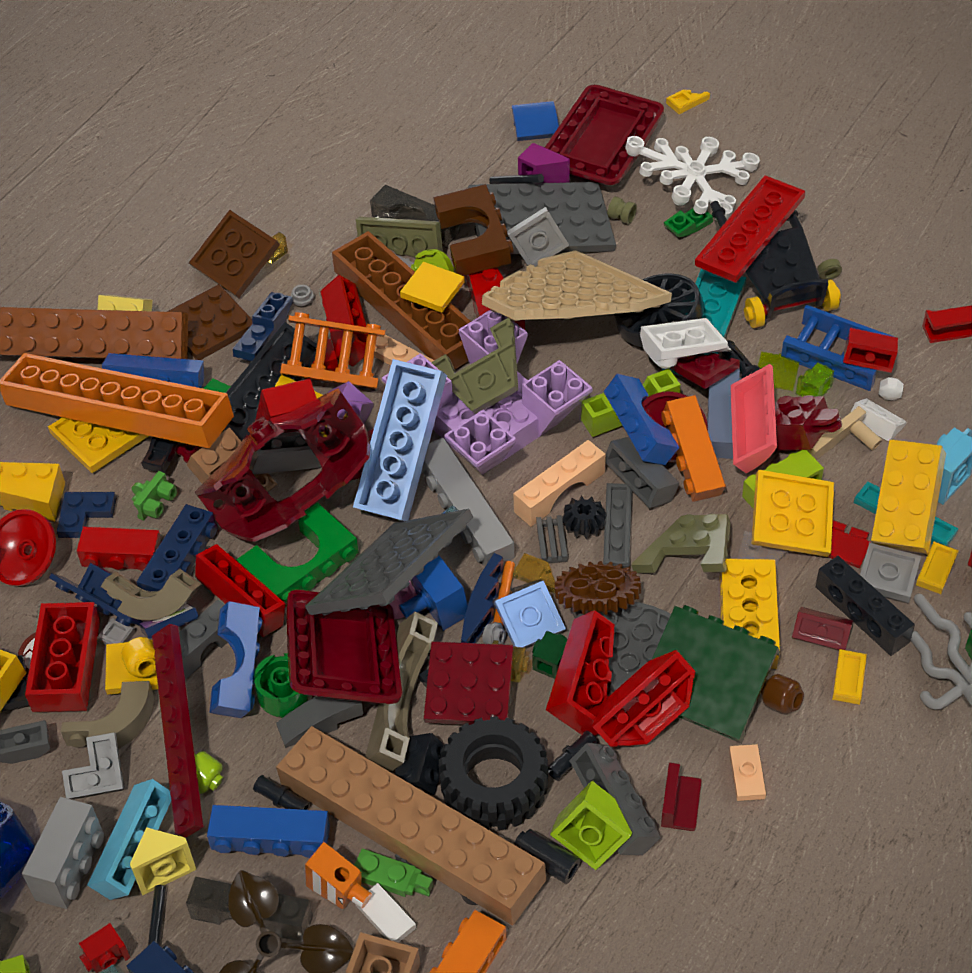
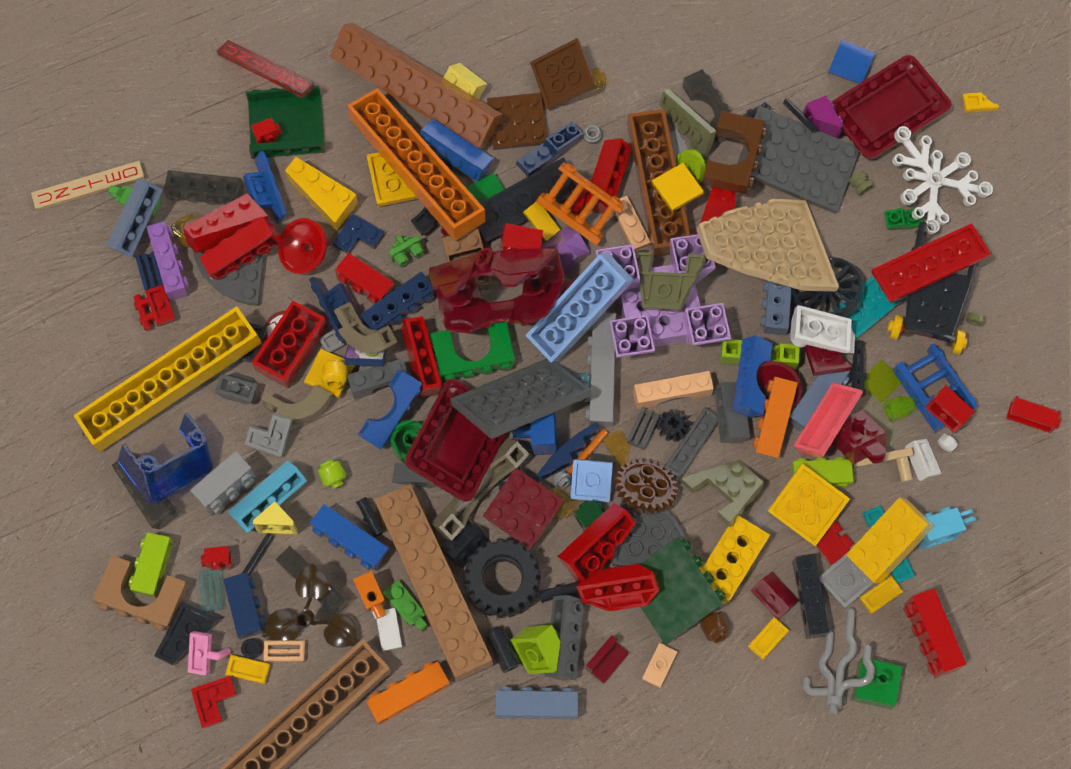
camera: 25 degrees right, 20 degrees up
(177, 732) = (328, 440): dark red plate -> none
(537, 237) = (778, 182): light grey plate -> none
(611, 346) = (776, 308): none -> sand blue brick
(631, 893) = (536, 704): none -> sand blue brick

